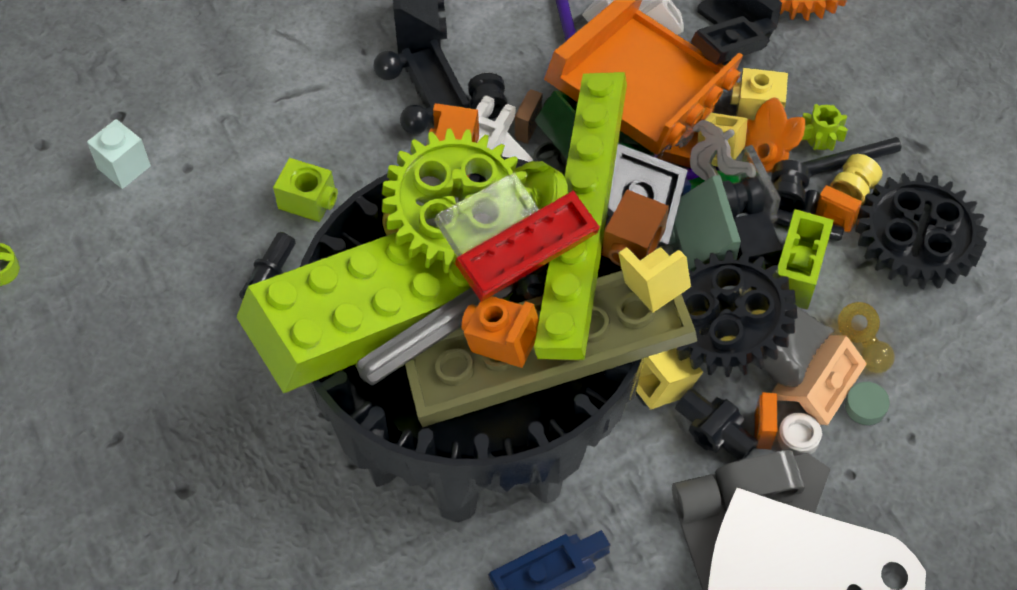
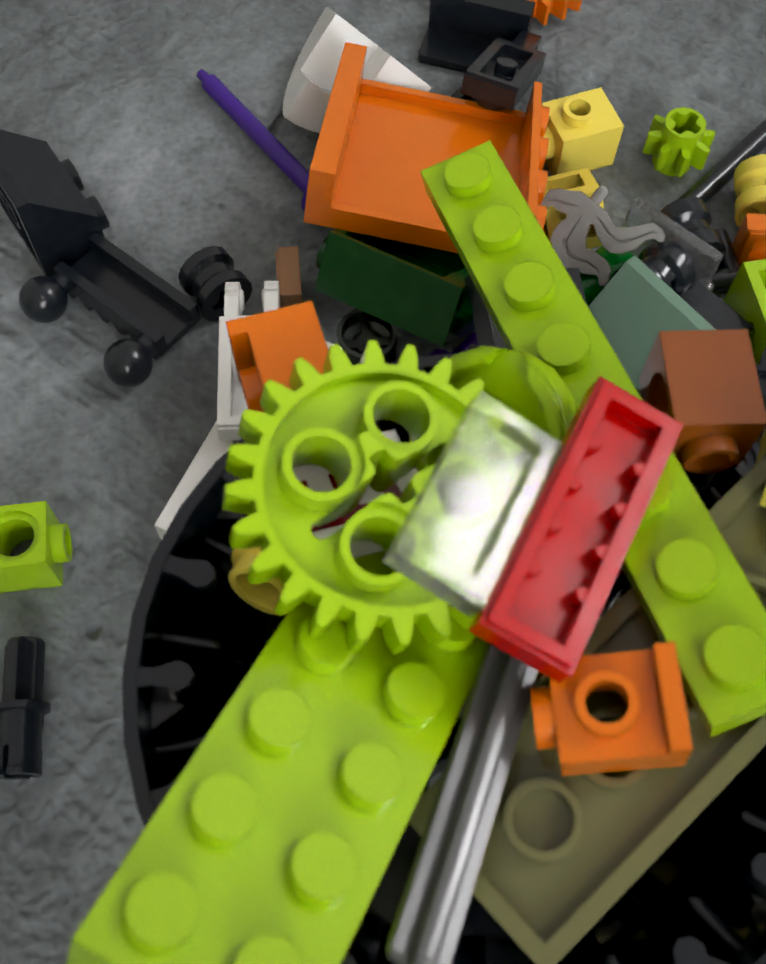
camera: 30 degrees left, 5 degrees up
(773, 133) = (631, 168): orange plate -> none

